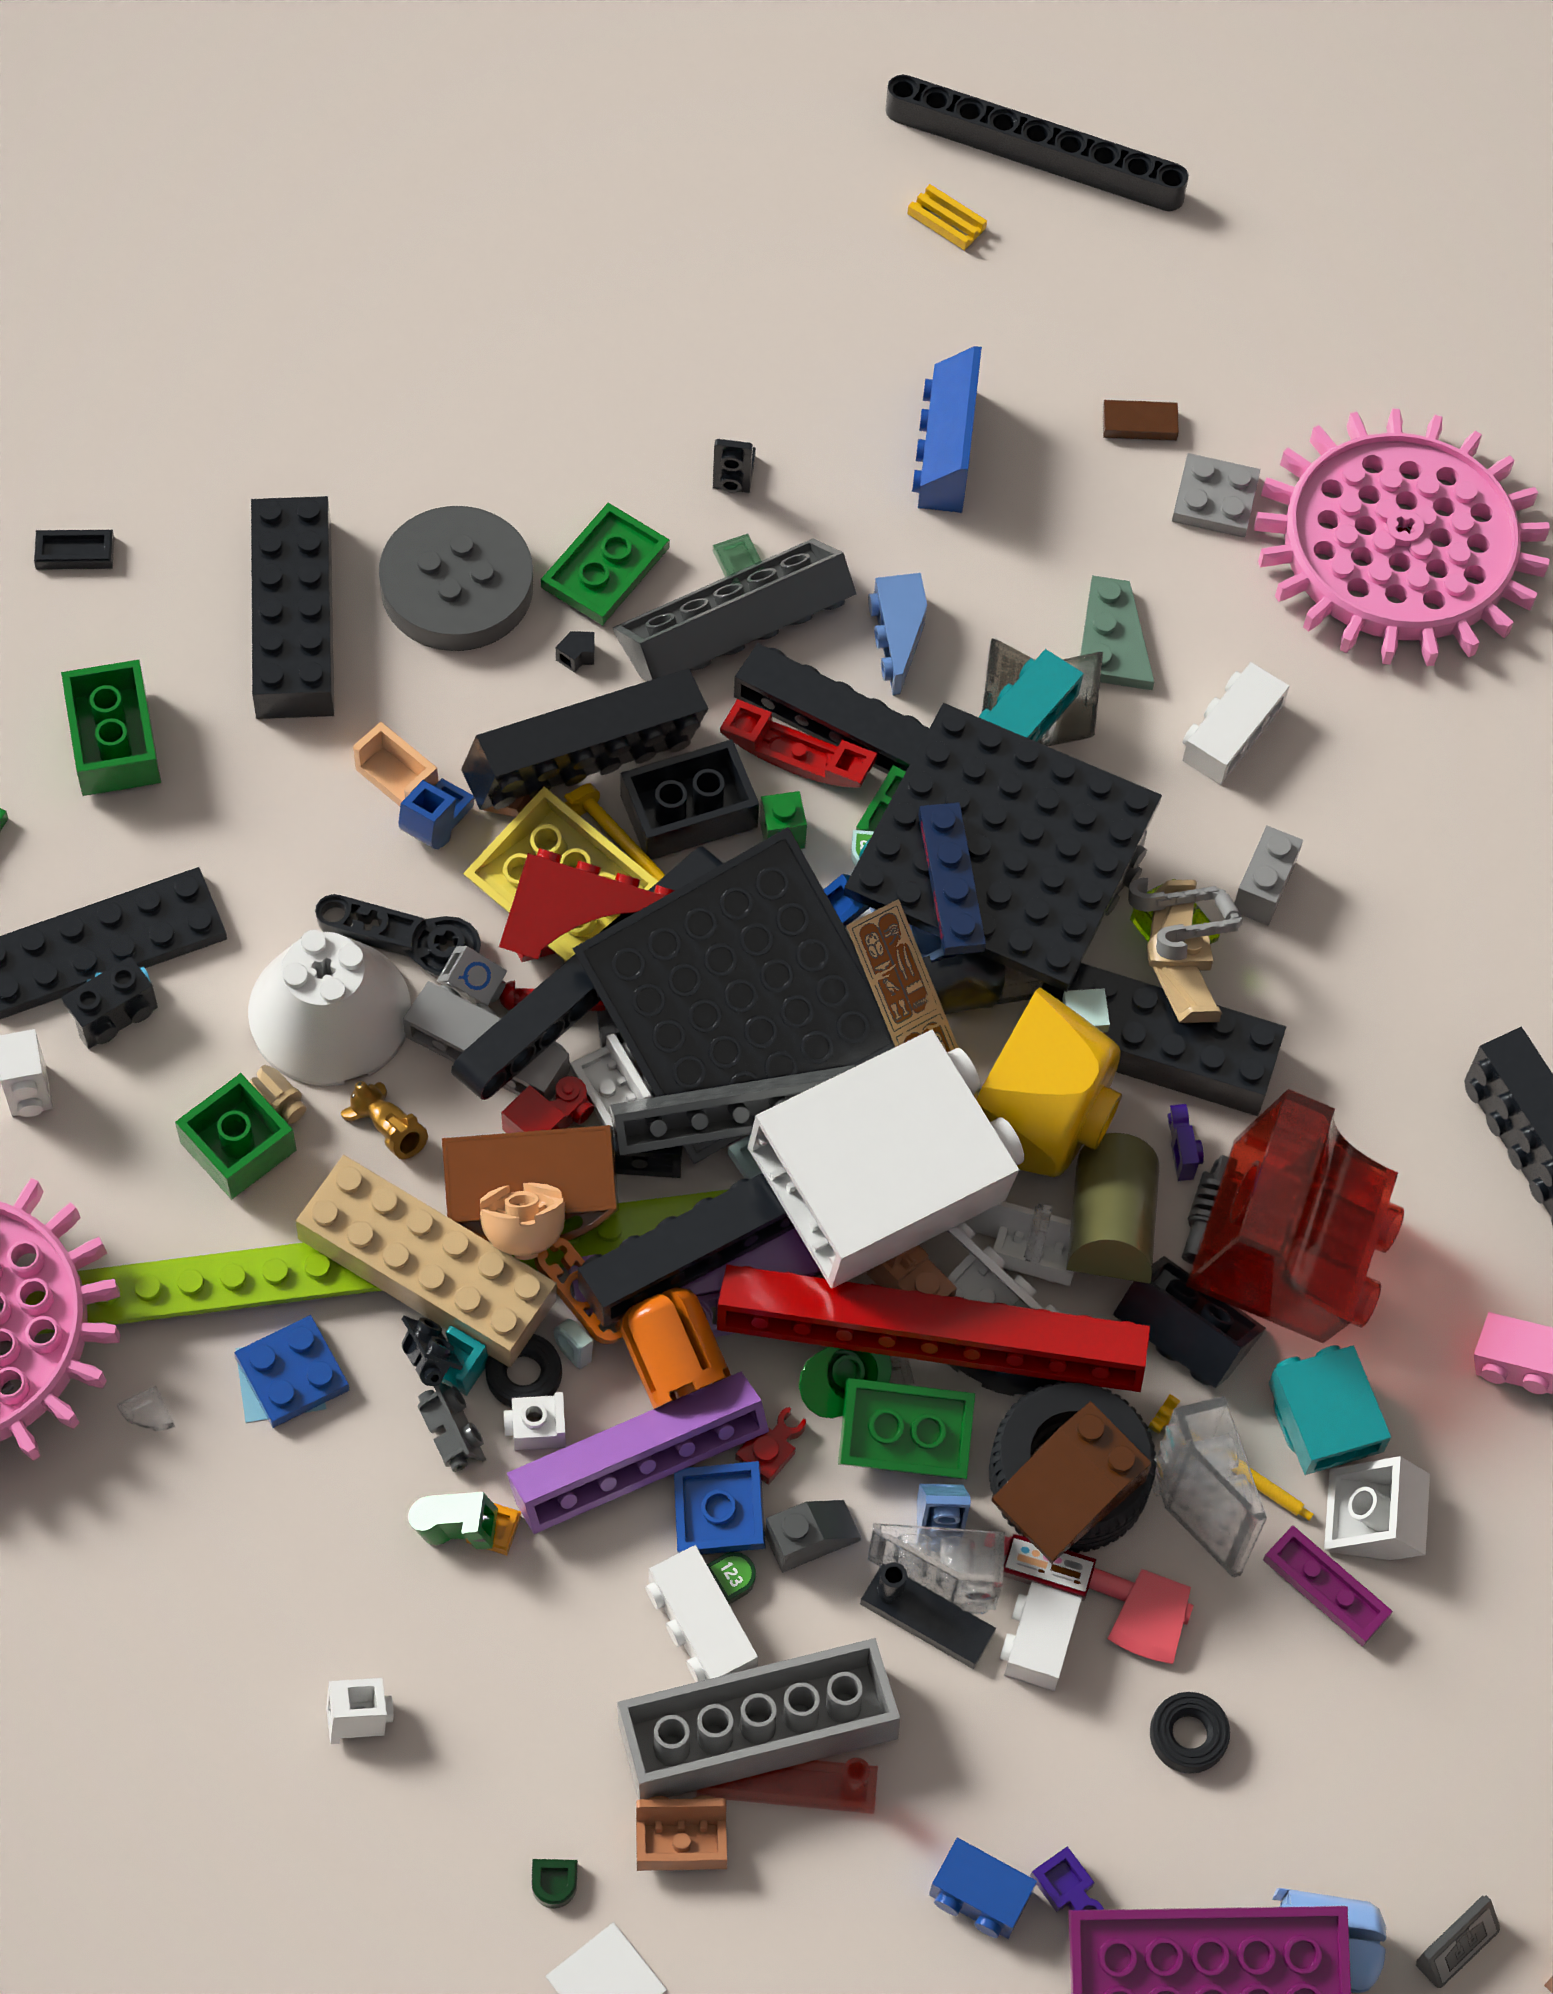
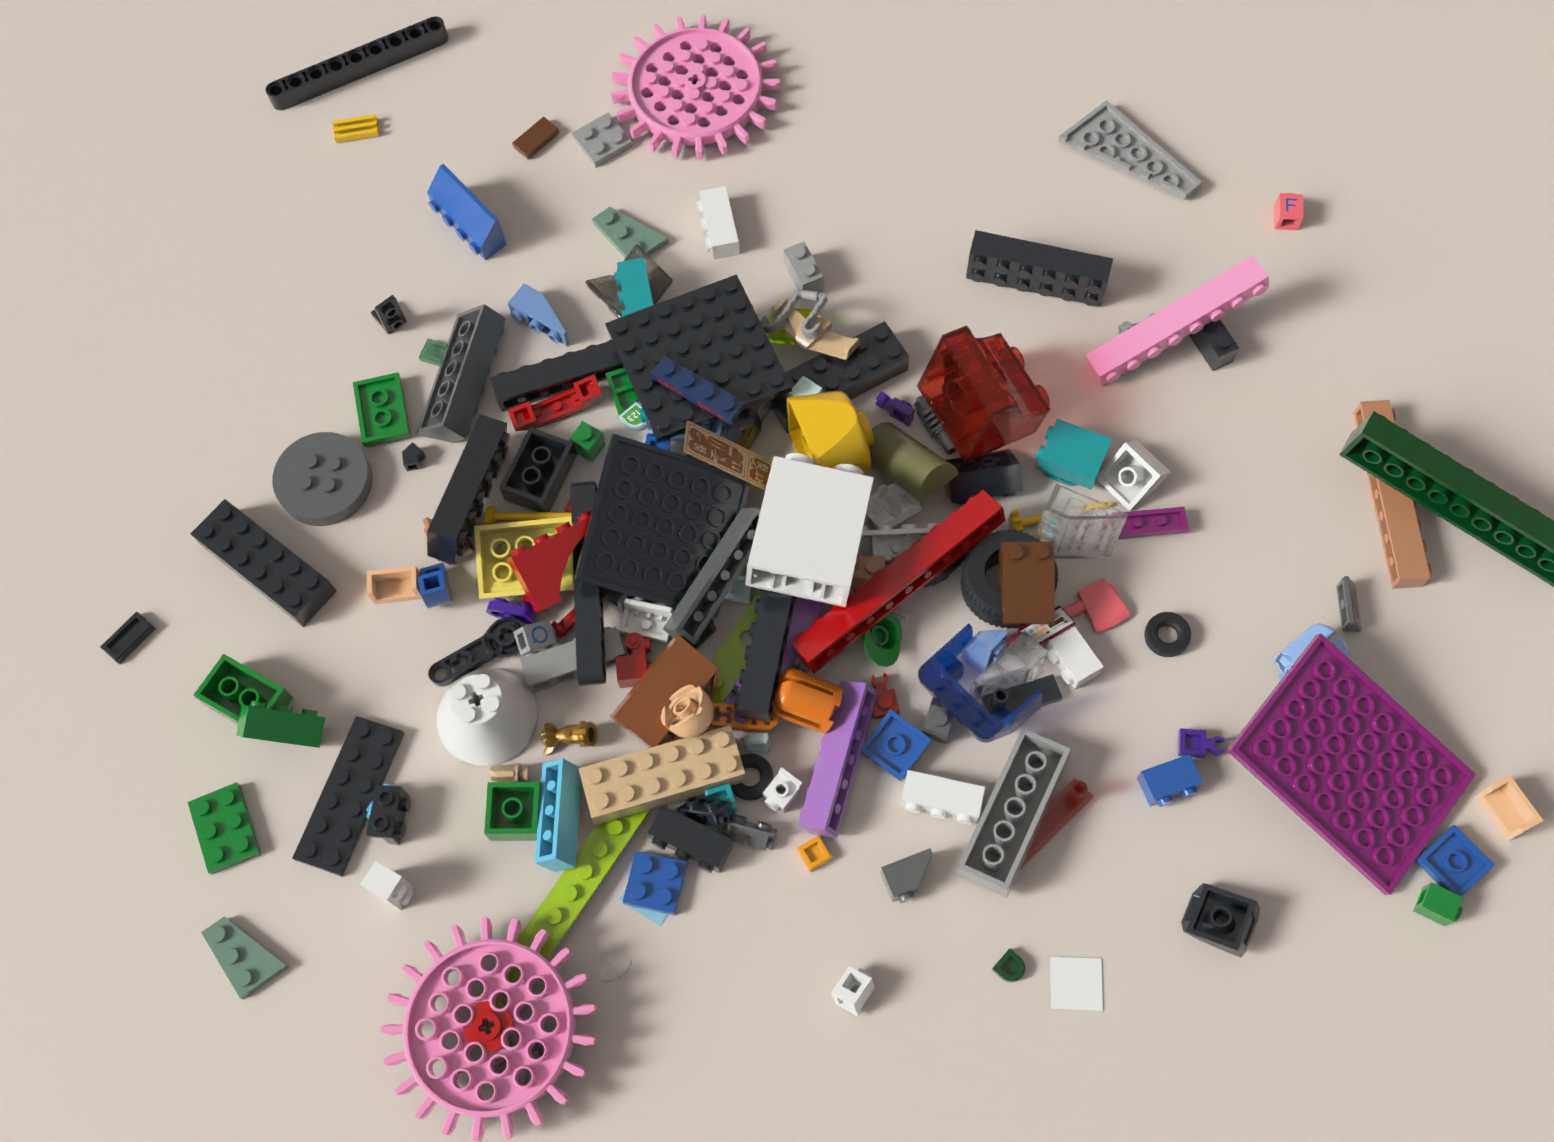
camera: 40 degrees left, 5 degrees up
(109, 793) = (280, 724): none -> green brick
(269, 1188) = (558, 816): none -> medium azure brick
(378, 1365) = (690, 840): none -> black brick
(455, 1517) = (796, 868): leg -> none
(477, 911) = (502, 608): none -> dark purple plate
(560, 1657) = (905, 875): none -> dark grey slope
(681, 1833) = (1037, 891): nougat bracket -> none
(733, 1574) = (931, 764): tile -> none
(851, 1490) = (941, 678): none -> clear blue windscreen
(906, 1428) = (927, 630): green plate -> none

